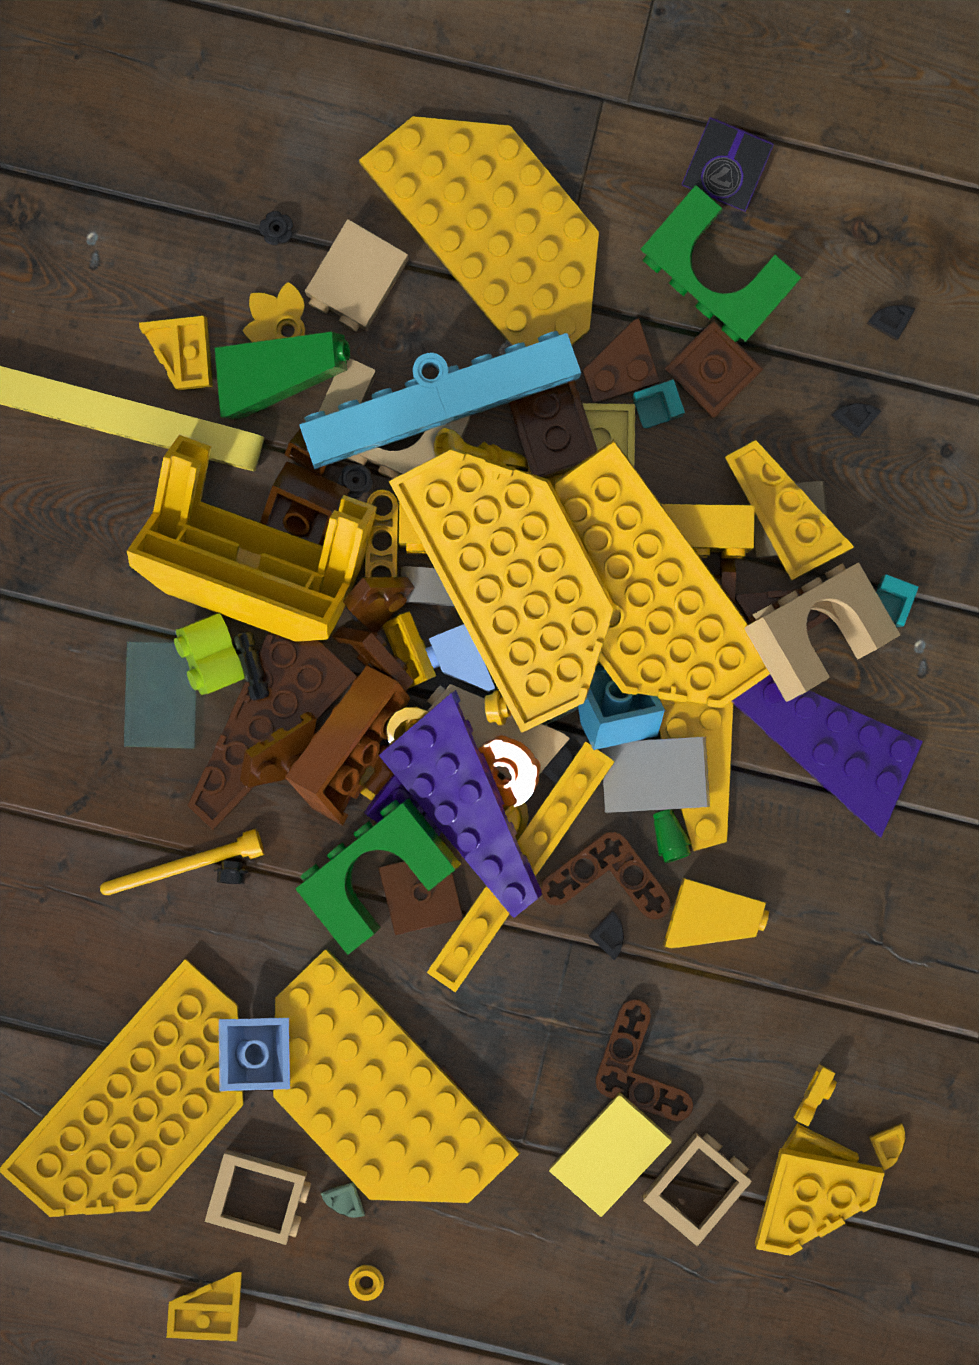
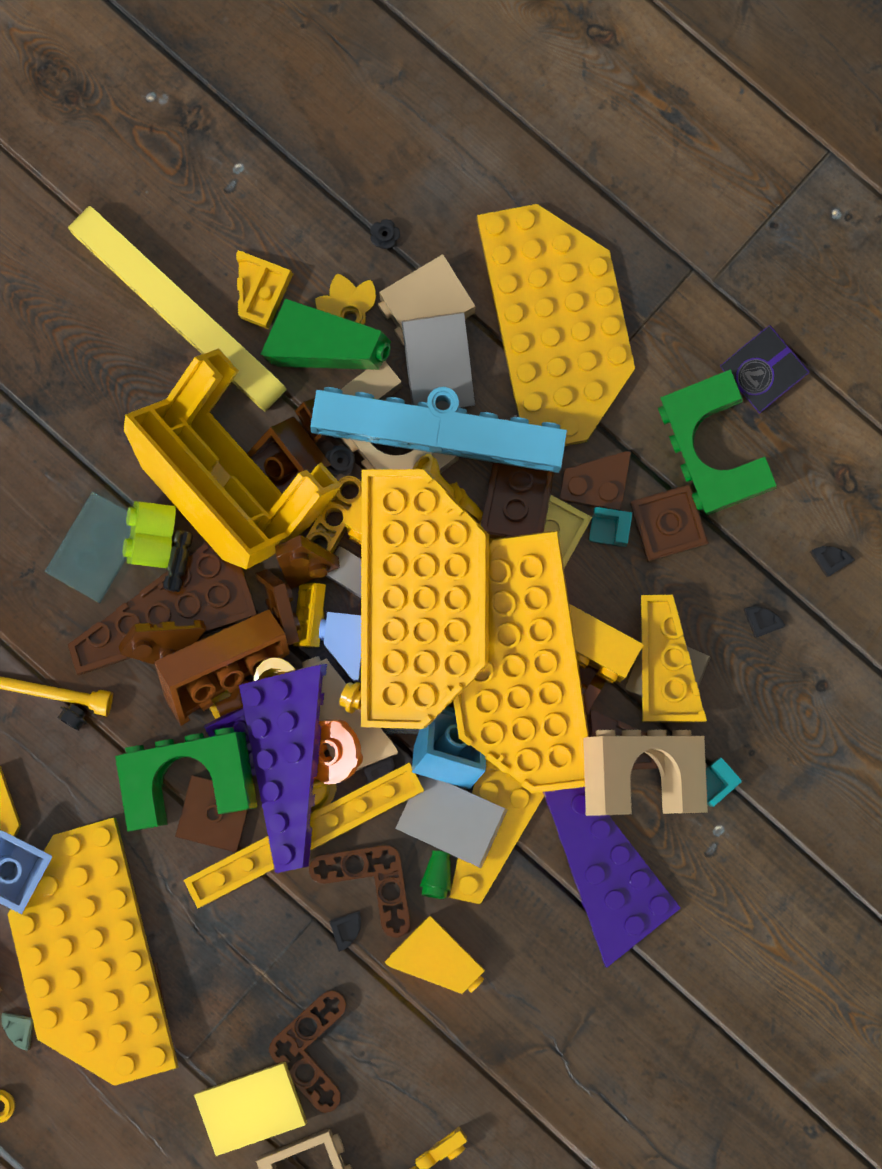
camera: 30 degrees right, 5 degrees down
(399, 327) = (438, 358): none -> light grey tile

